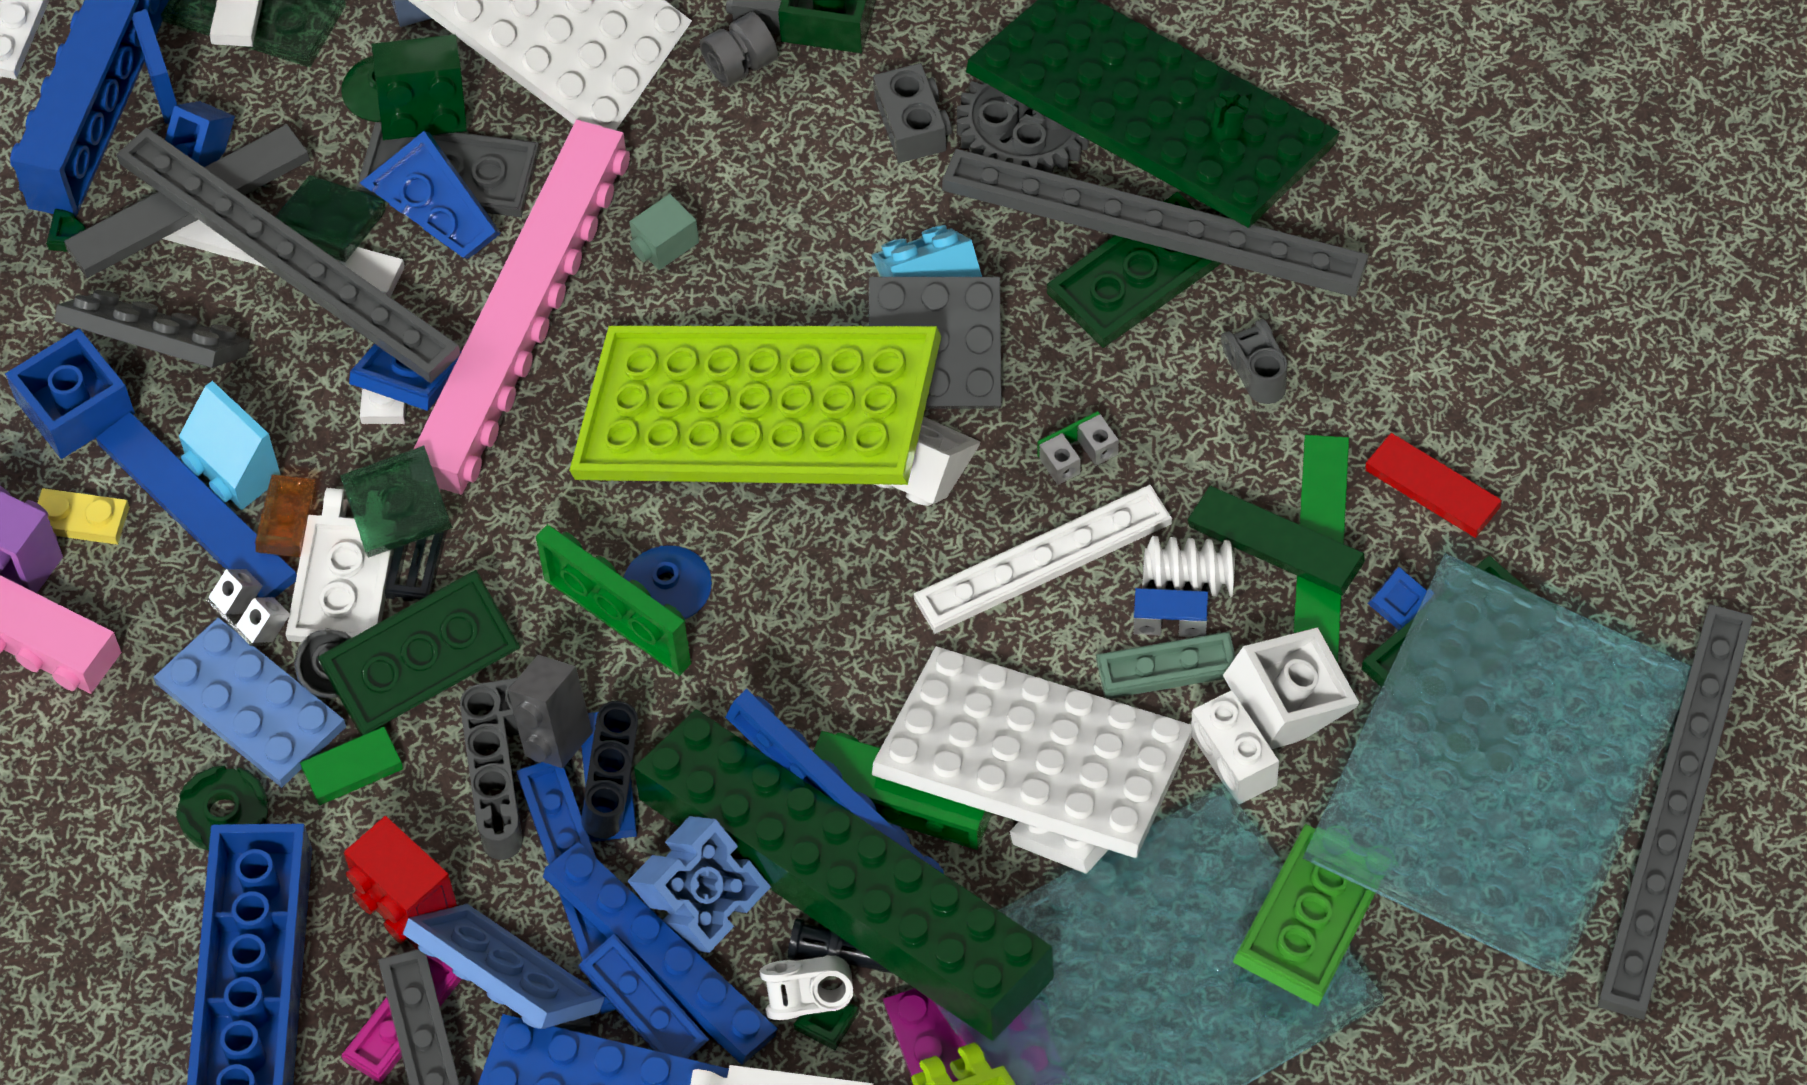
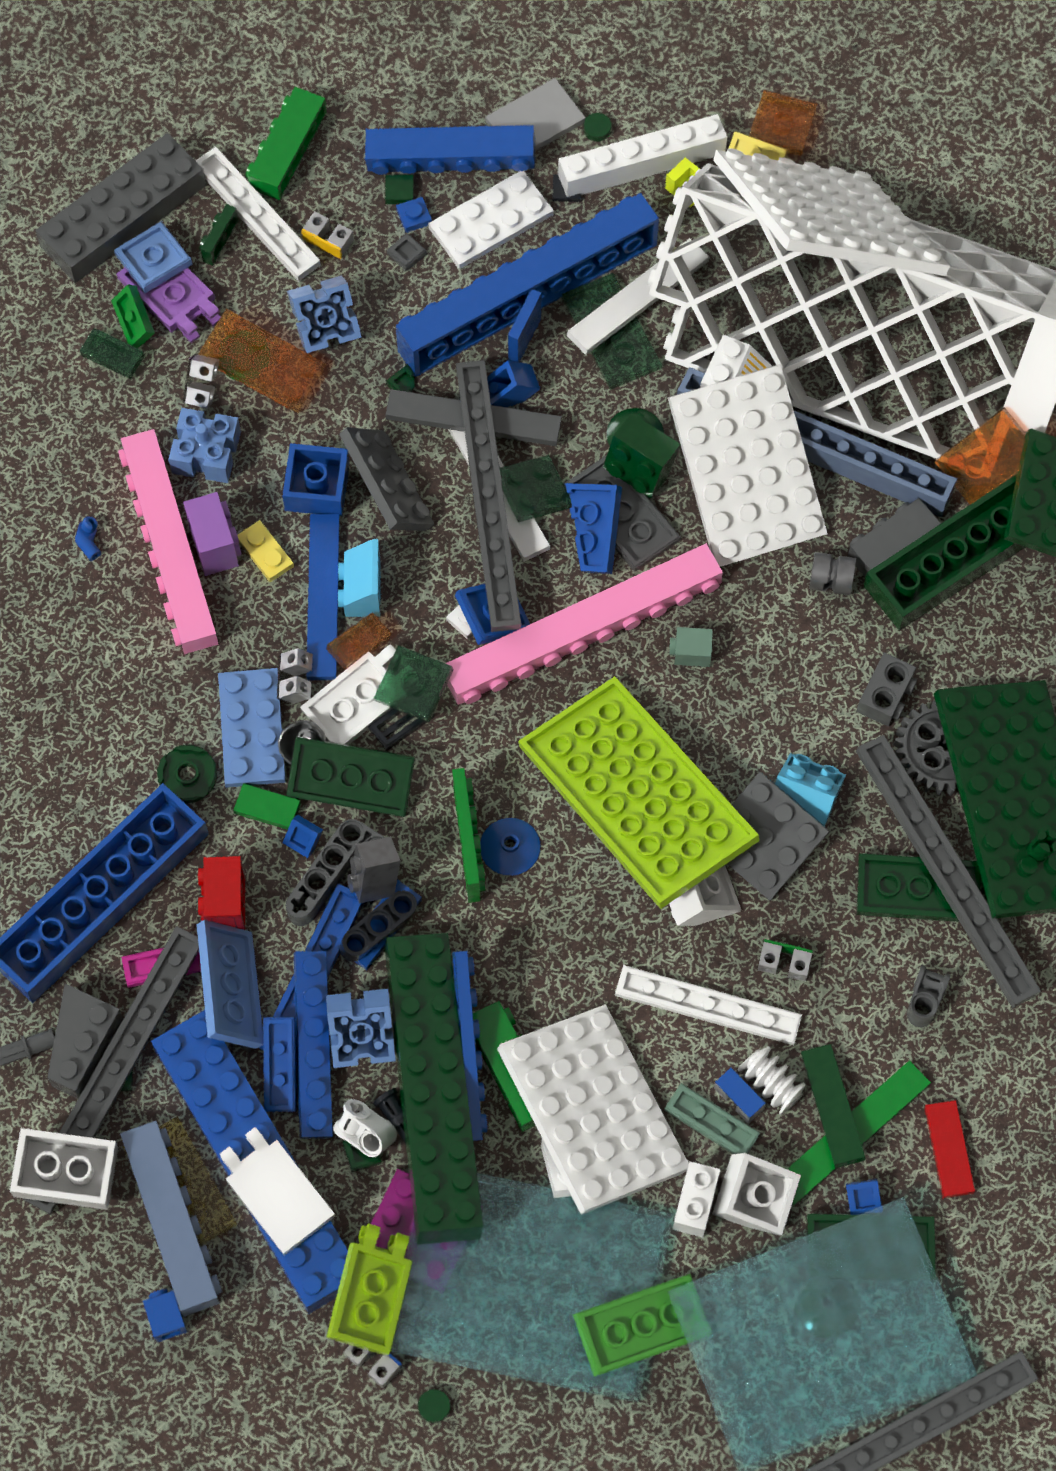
camera: 40 degrees right, 10 degrees up
(425, 758) = (302, 836): none -> blue plate

